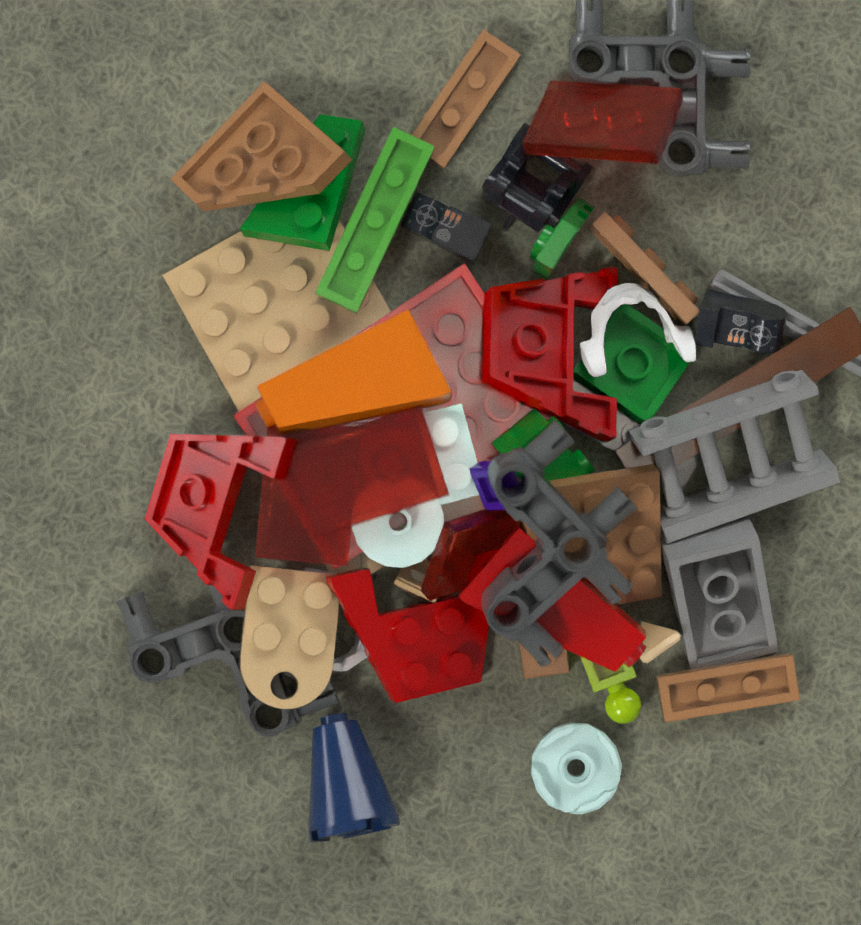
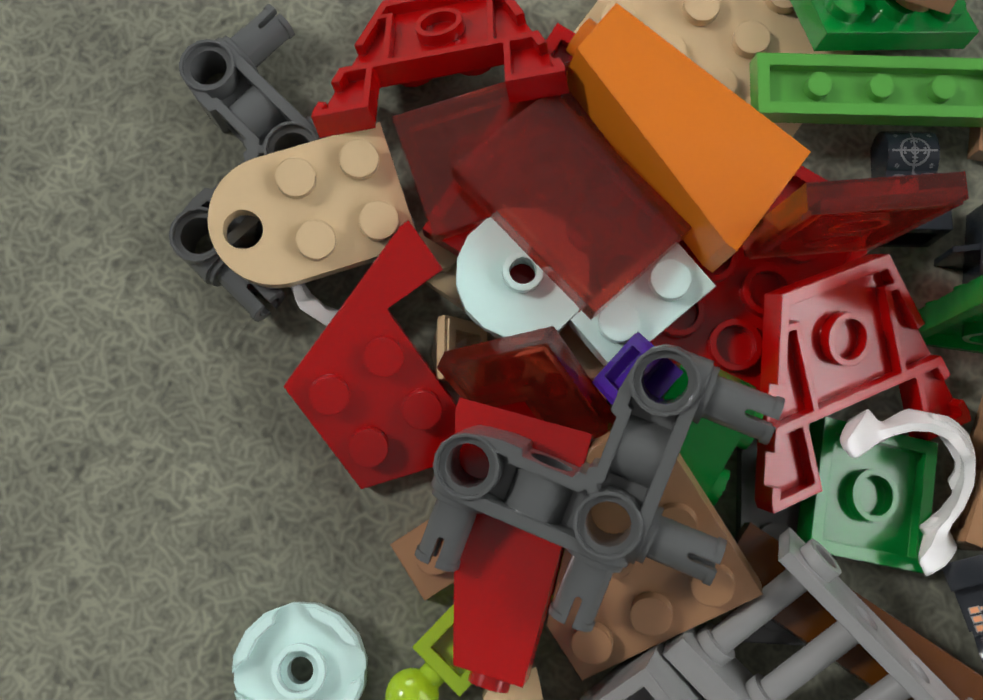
camera: 65 degrees right, 10 degrees down
(346, 784) = (149, 372): dark blue cone -> none
(465, 320) = (853, 214): none -> clear red tile

